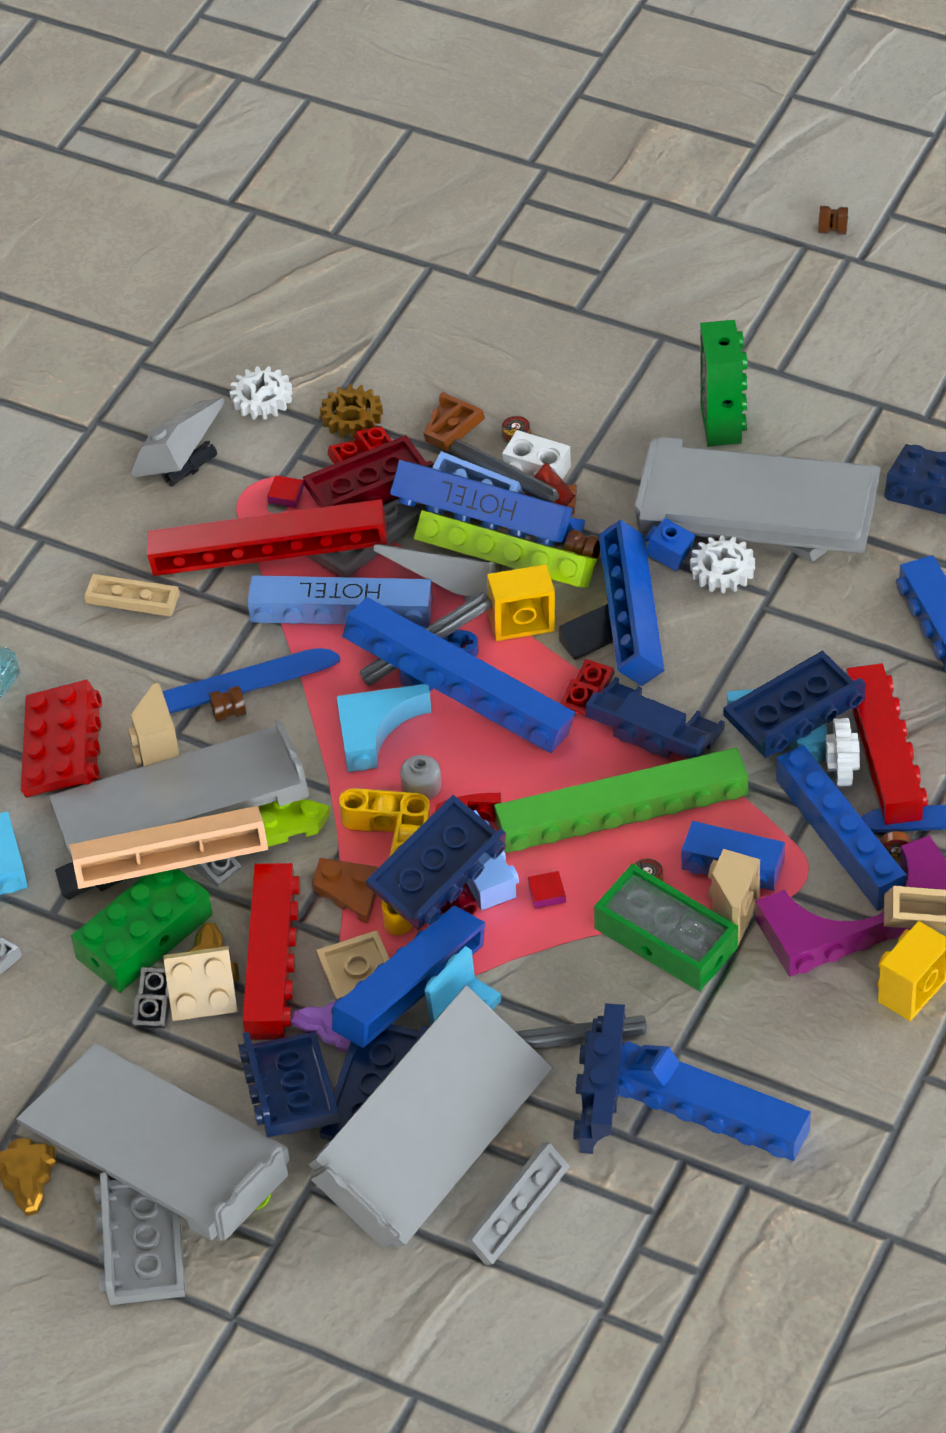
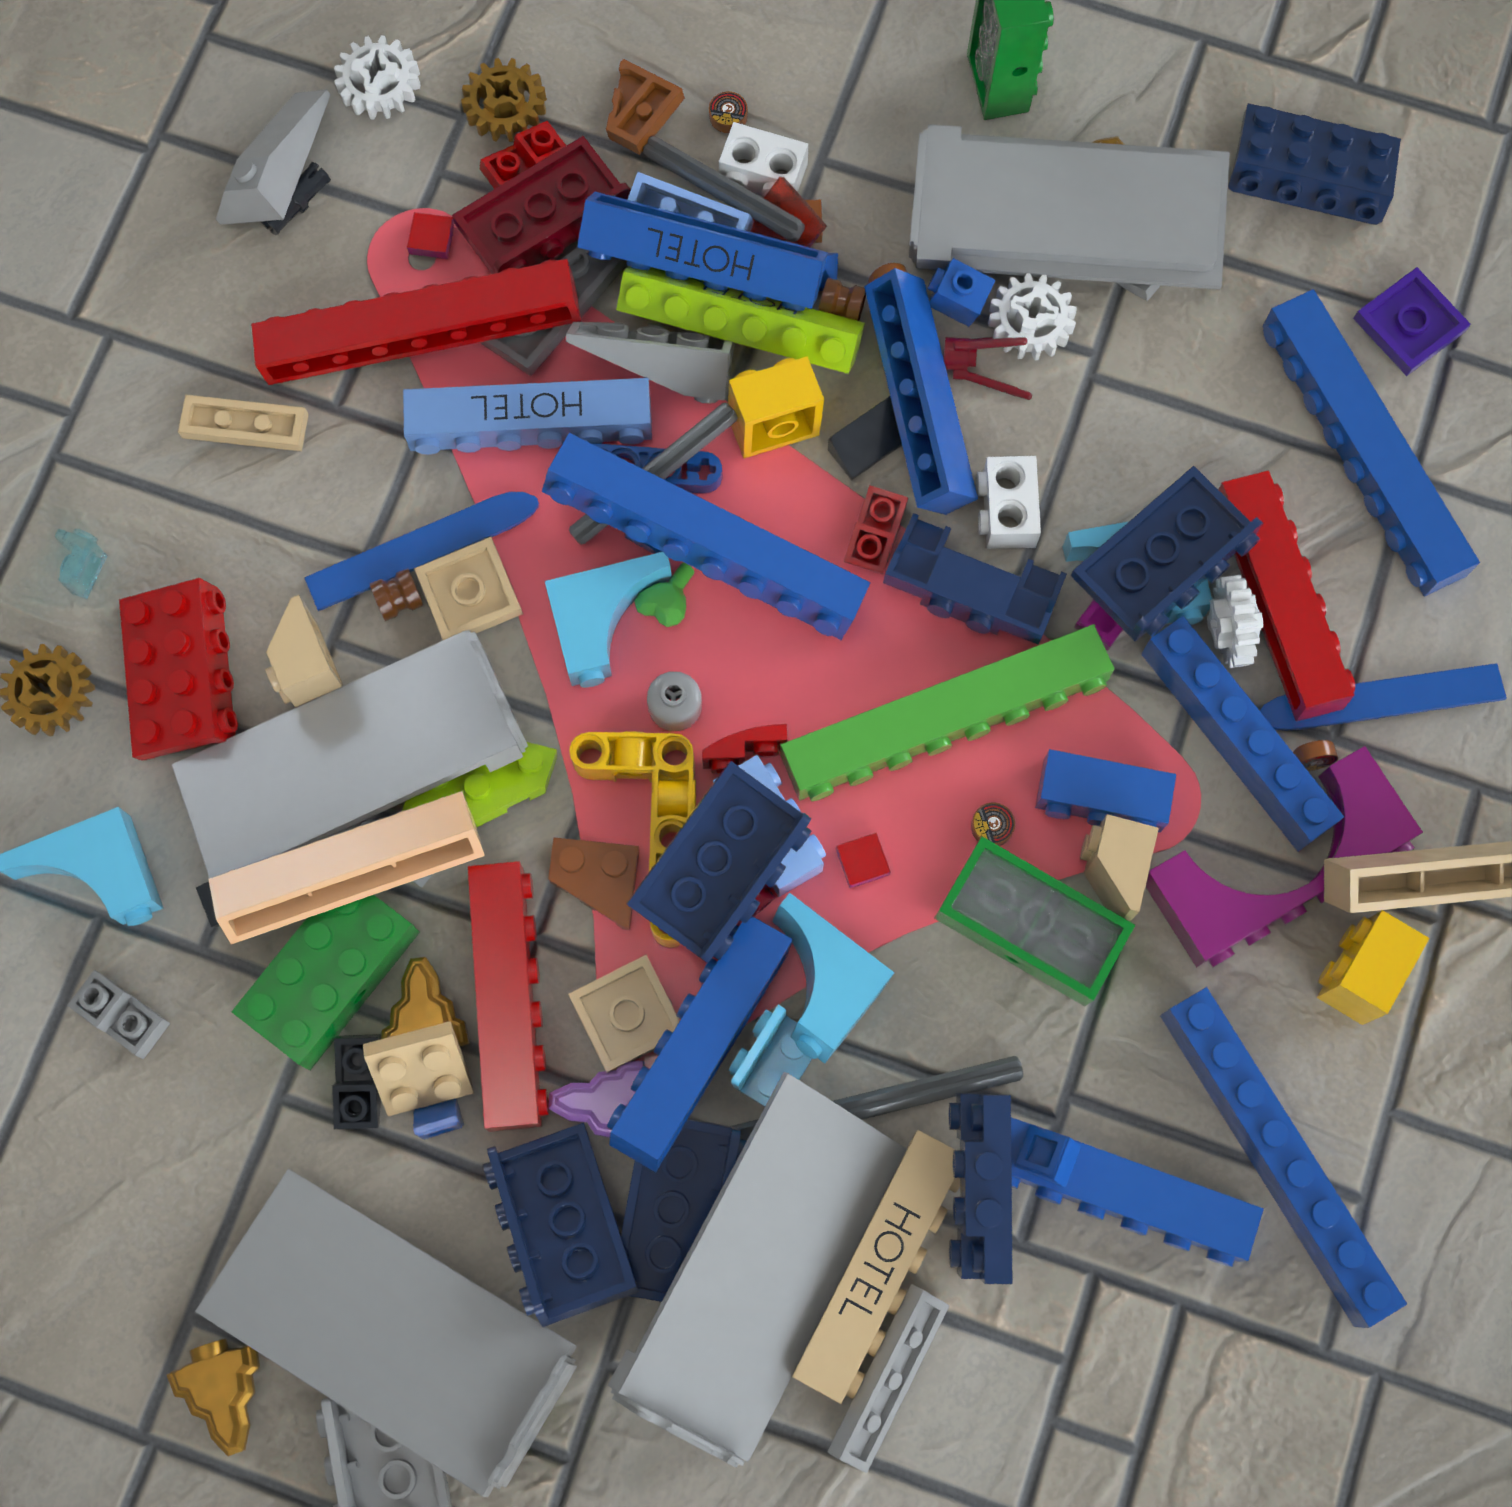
camera: 10 degrees left, 25 degrees up
(209, 1026) = (437, 1119): none -> blue slope
(281, 700) = (468, 589): none -> tan plate
(425, 721) = (666, 599): none -> bright green rock
(516, 1136) = (878, 1269): none -> tan brick
(517, 953) = (839, 979): none -> medium azure arch
(667, 583) = (962, 353): none -> dark red plant
(688, 676) = (1018, 503): none -> white brick
(752, 758) = (1104, 624): none -> magenta tile
(832, 1090) = (1283, 1160): none -> blue brick

